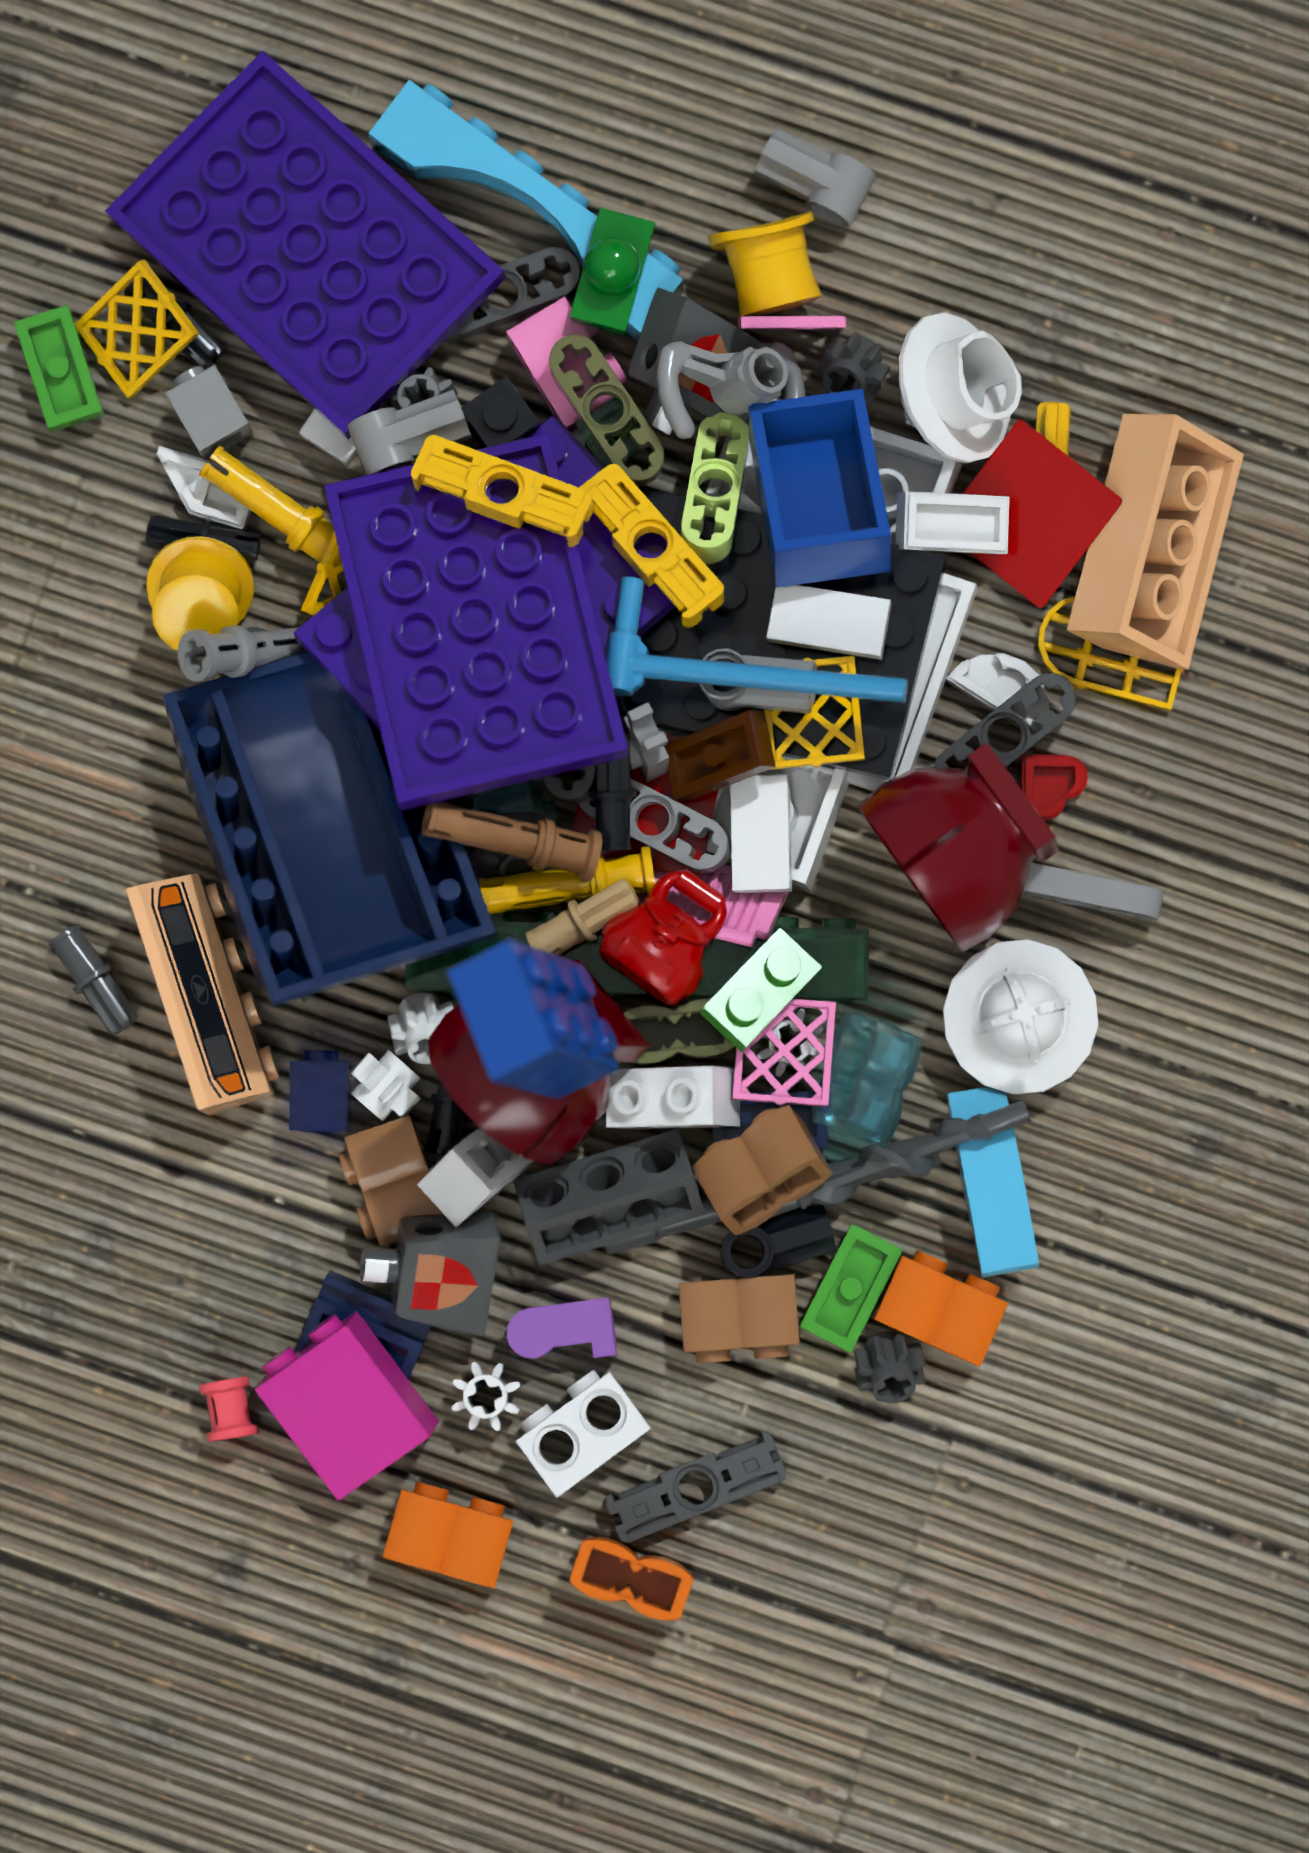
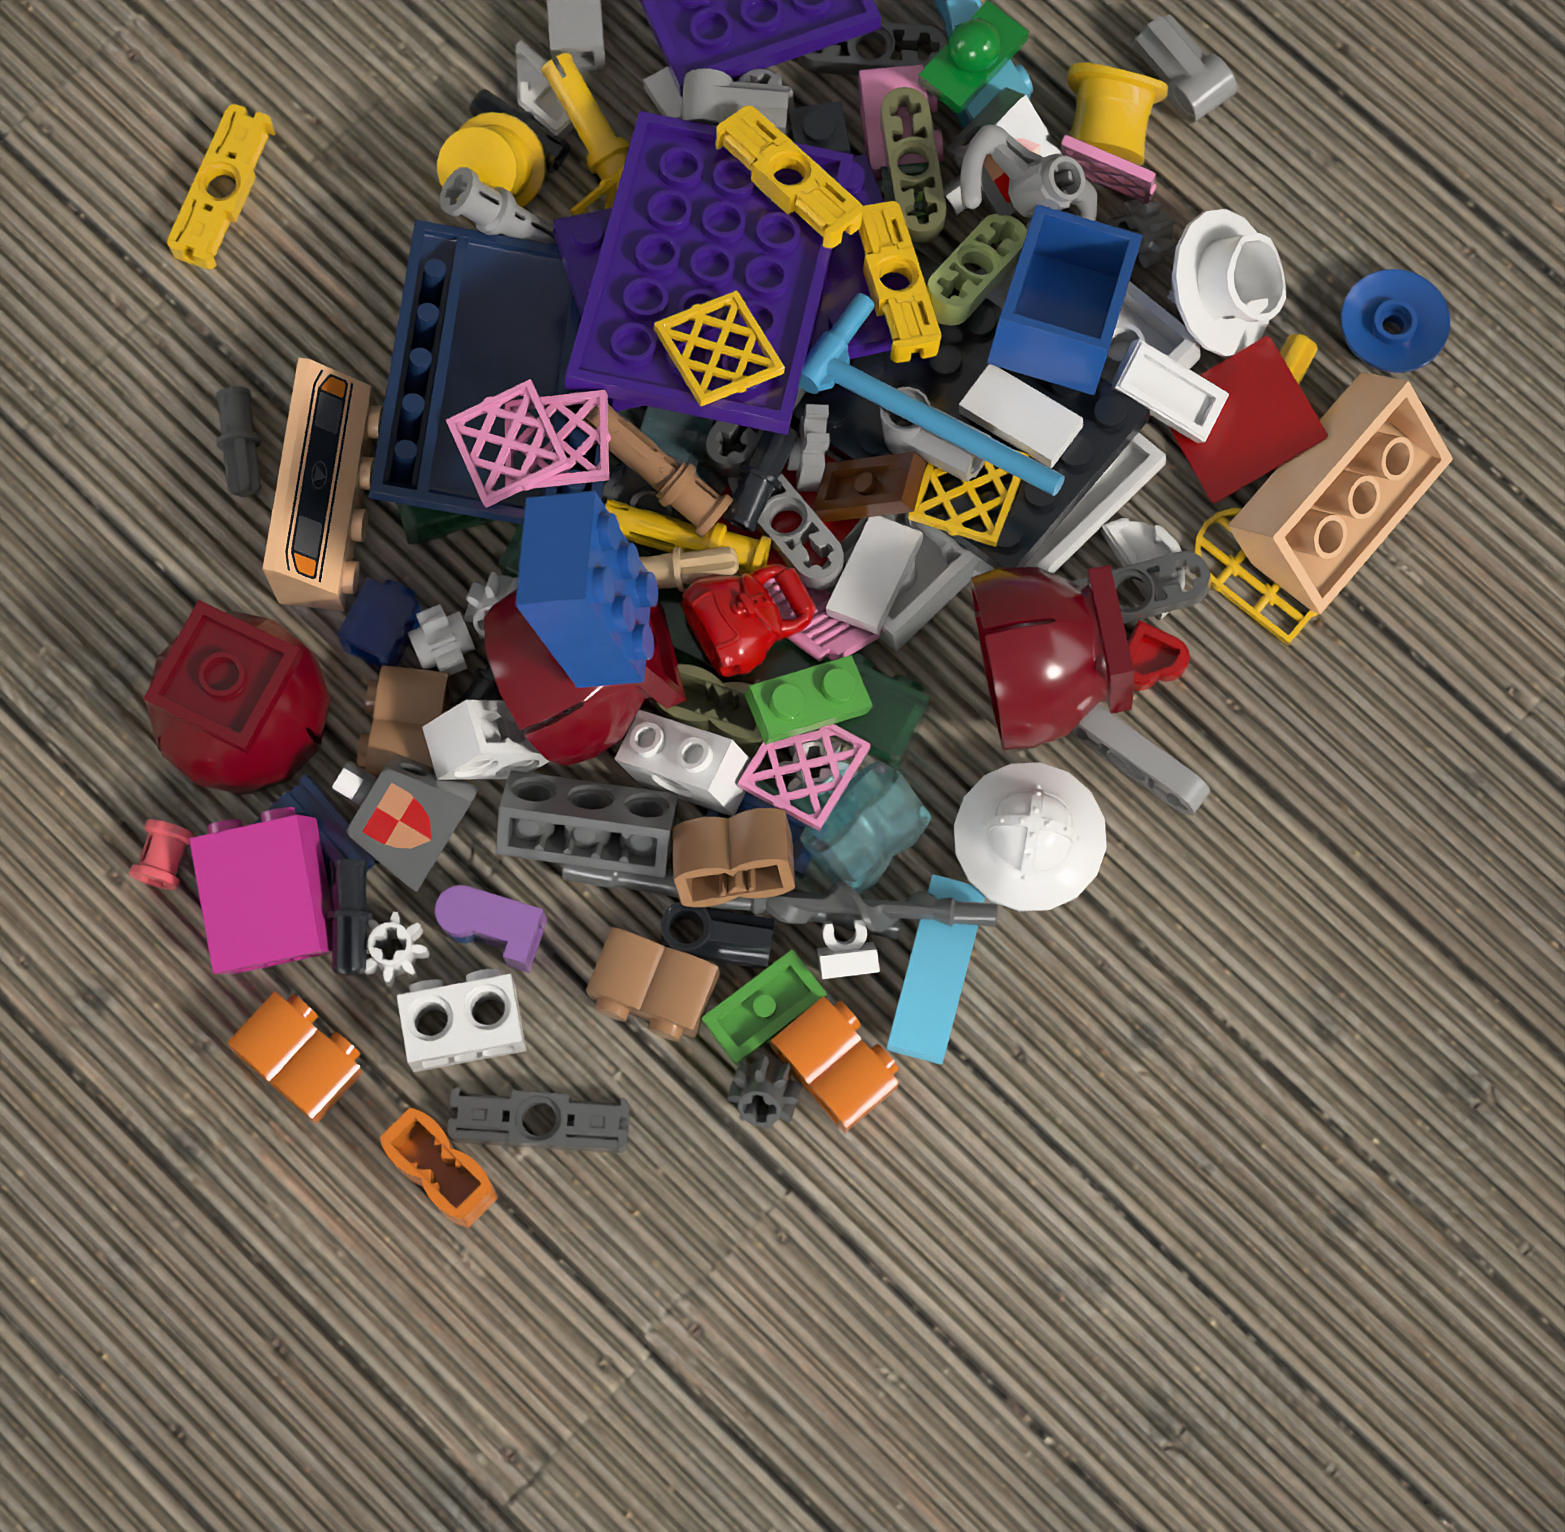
camera: 20 degrees right, 10 degrees down
(226, 1234) = (236, 701): none -> dark red plate
(378, 888) = (600, 435): none -> bright pink window
(408, 920) = (491, 407): none -> bright pink window
(435, 1390) = (349, 916): none -> black axle
(489, 678) = (699, 314): none -> yellow window
(905, 1207) = (847, 957): none -> white tile
(1137, 317) = (1400, 299): none -> blue dish

